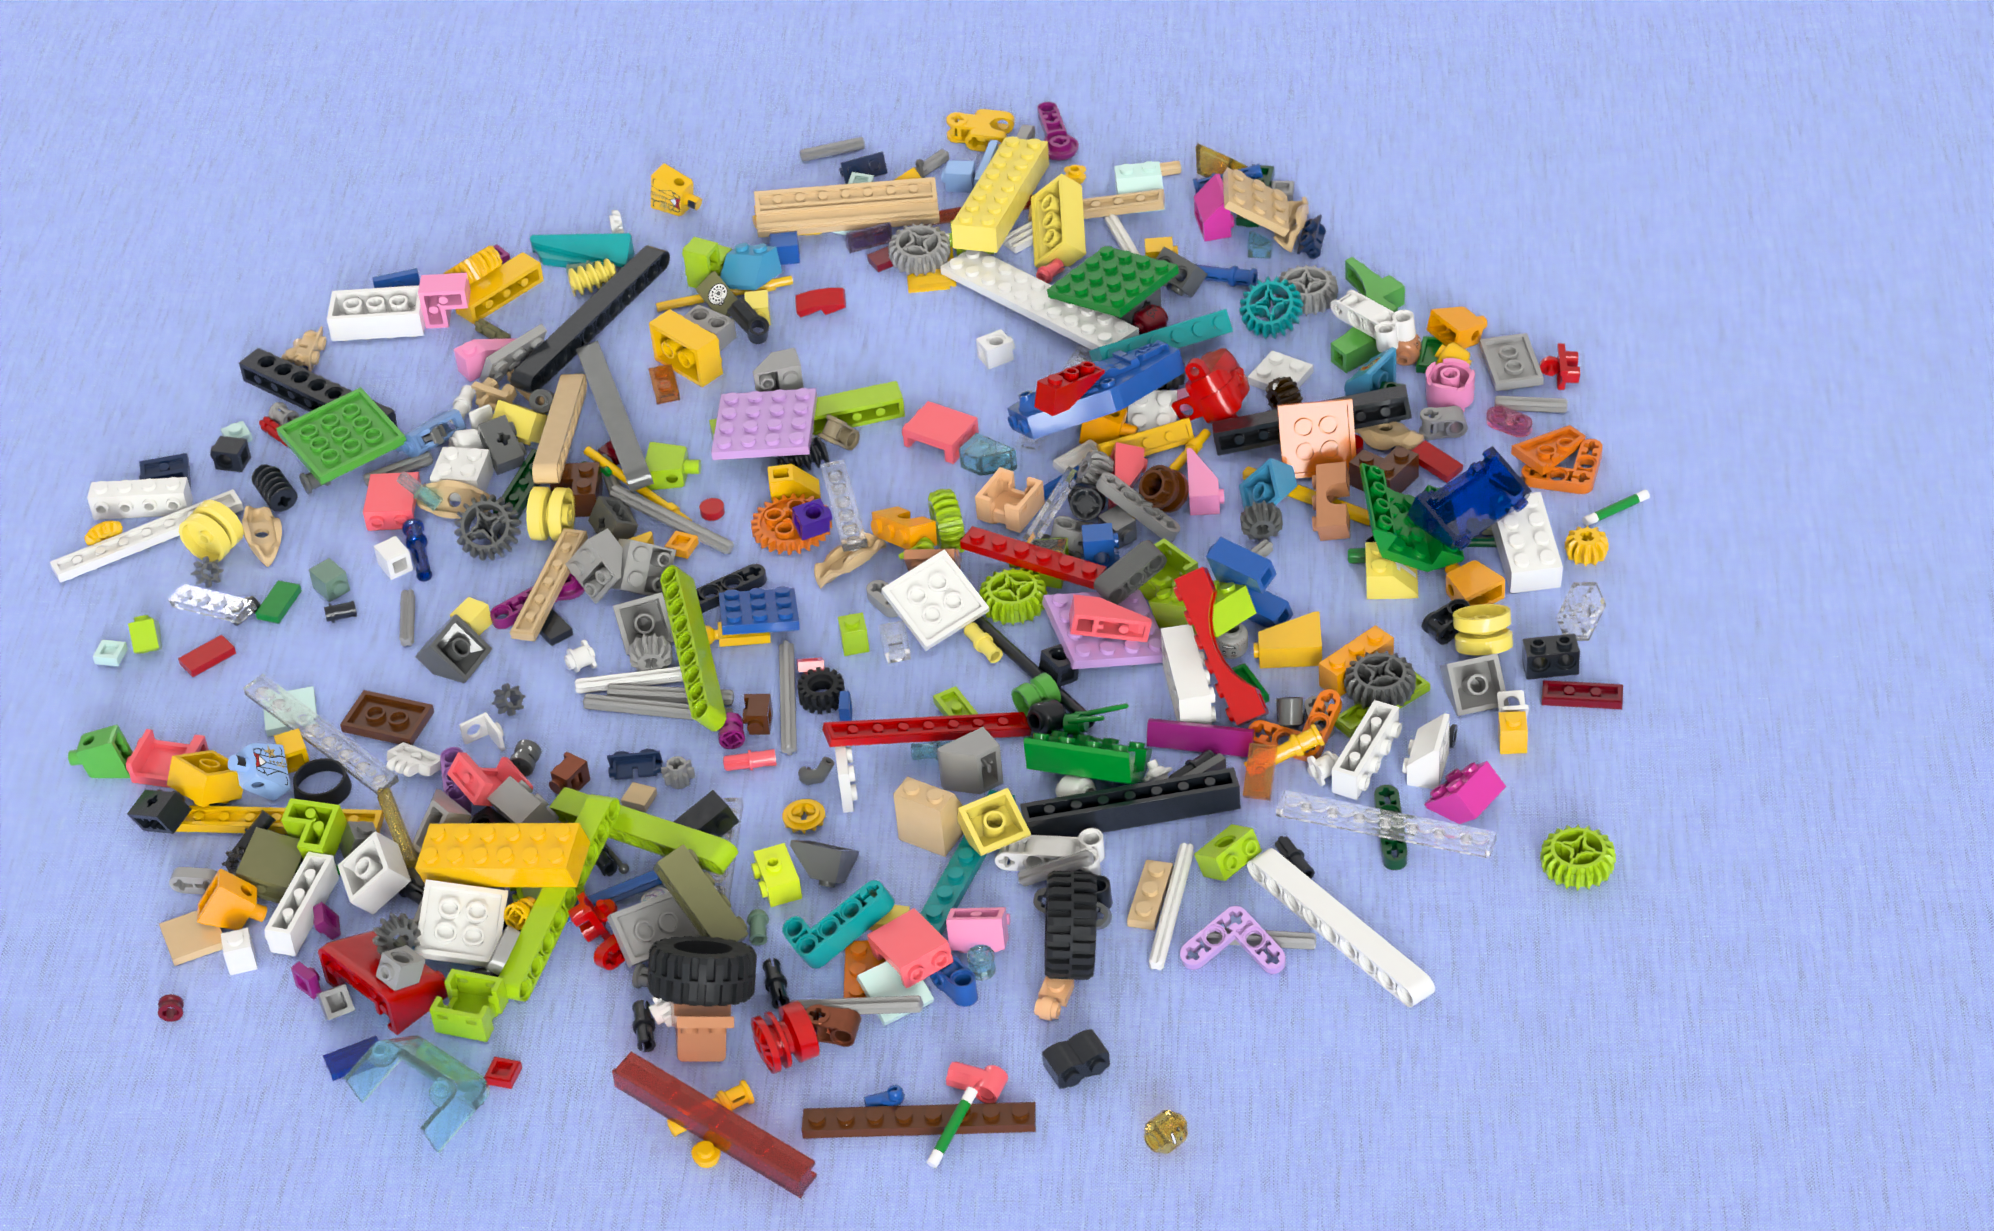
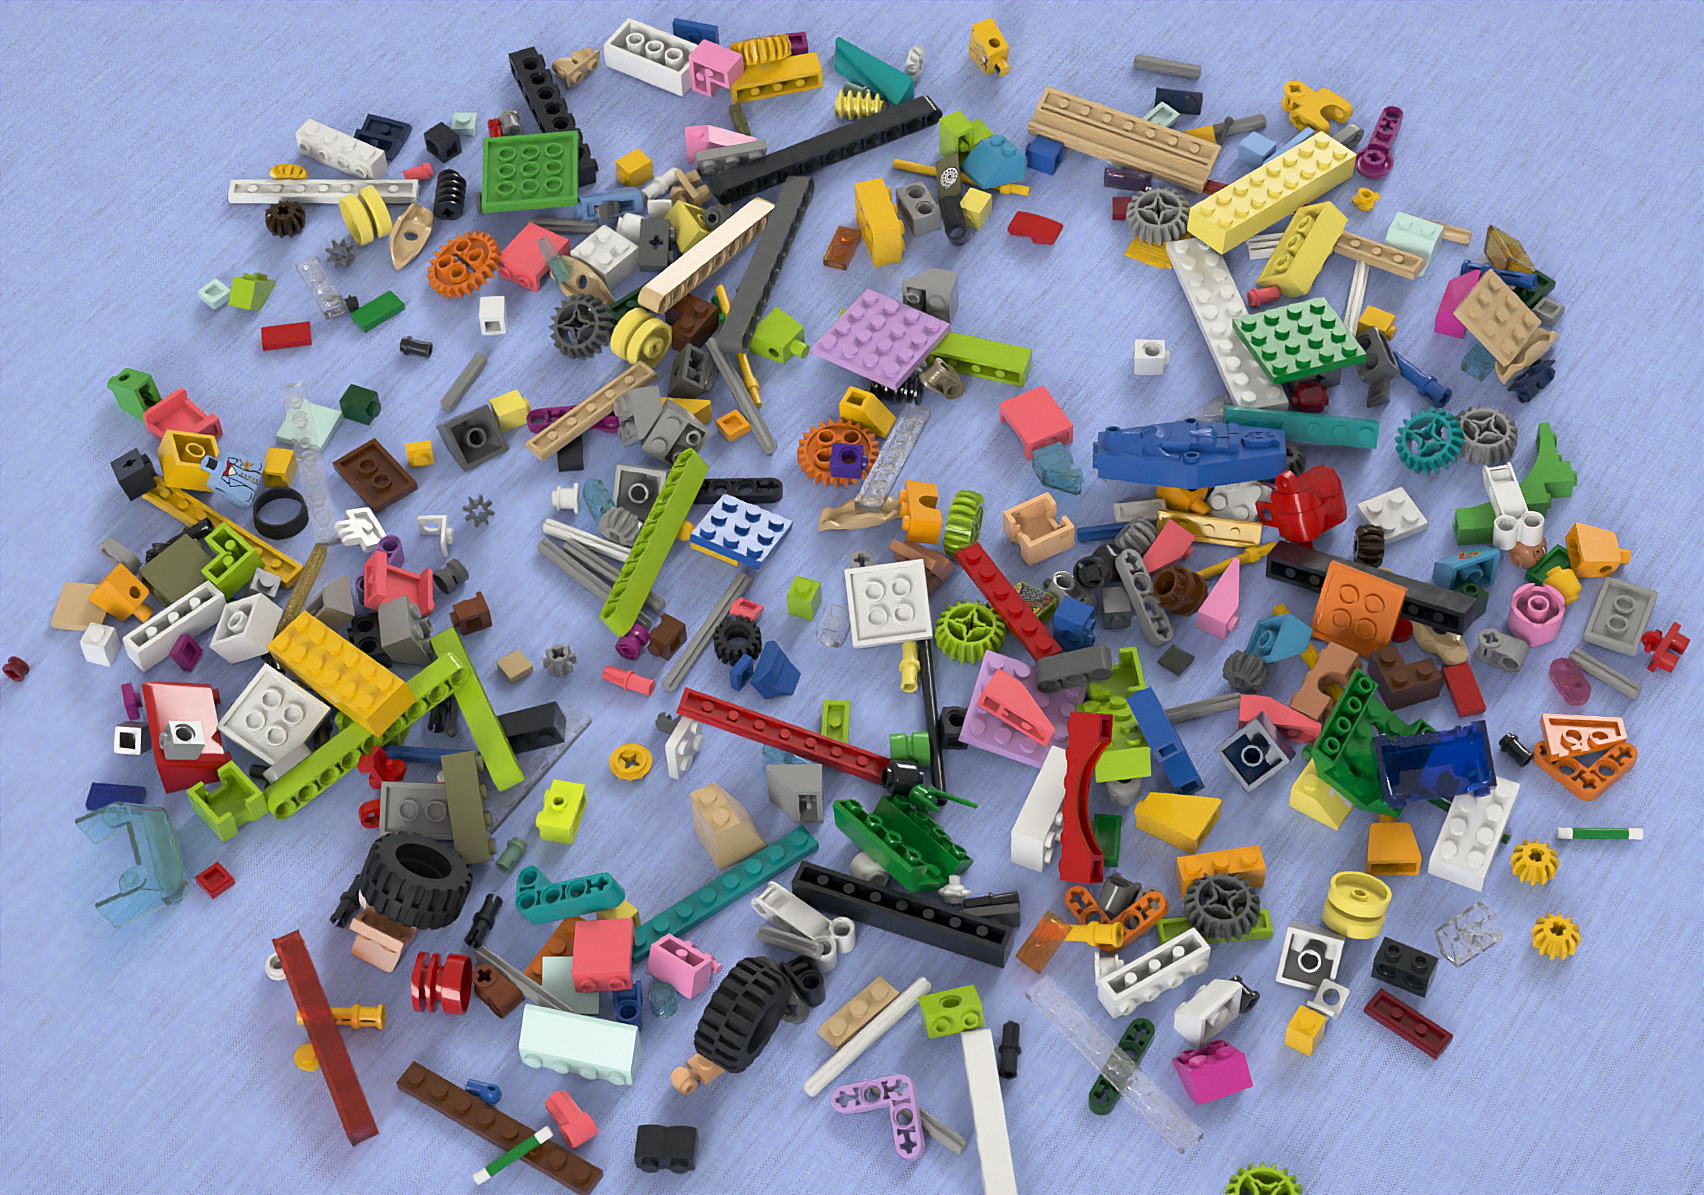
camera: 30 degrees right, 10 degrees up
(129, 569) = (285, 218): none -> dark brown gear
(231, 481) = (419, 172): none -> coral pin
(327, 672) = (360, 404): none -> dark green brick
(329, 580) = (428, 311): sand green brick -> none
(335, 530) = (476, 252): none -> orange gear
(396, 925) = (203, 706): dark grey gear -> none
(416, 543) = (523, 309): clear blue pin -> none
(416, 683) = (420, 453): none -> yellow plate
(428, 401) = (634, 169): none -> yellow brick
(518, 912) = (322, 732): yellow wheel -> none
(612, 648) = (597, 498): none -> clear light blue plate
(619, 1103) = (270, 968): none -> white plate
(646, 761) = (523, 627): dark blue hinge -> none
(712, 509) = (786, 401): red tile -> none
(825, 861) = (611, 818): dark grey slope -> none
(873, 698) = (774, 673): none -> blue slope
(923, 543) = (918, 542): lime hand -> none
(942, 1021) = (580, 1045): none -> light aqua slope
(992, 822) = (764, 867): light yellow slope -> none
(1051, 506) = (1060, 558): clear plate -> none
(1063, 389) = (1142, 445): red slope -> none
(1194, 542) = (1176, 659): none -> dark grey slope
(1199, 297) = (1379, 393): none -> dark grey slope
(1199, 737) = (1020, 874): magenta tile -> none
(1309, 545) = (1289, 723): none -> coral slope
(1316, 568) = (1255, 752): none -> dark blue slope
(1443, 624) = (1333, 866): black piece -> none
(1643, 585) = (1555, 936): none -> yellow gear

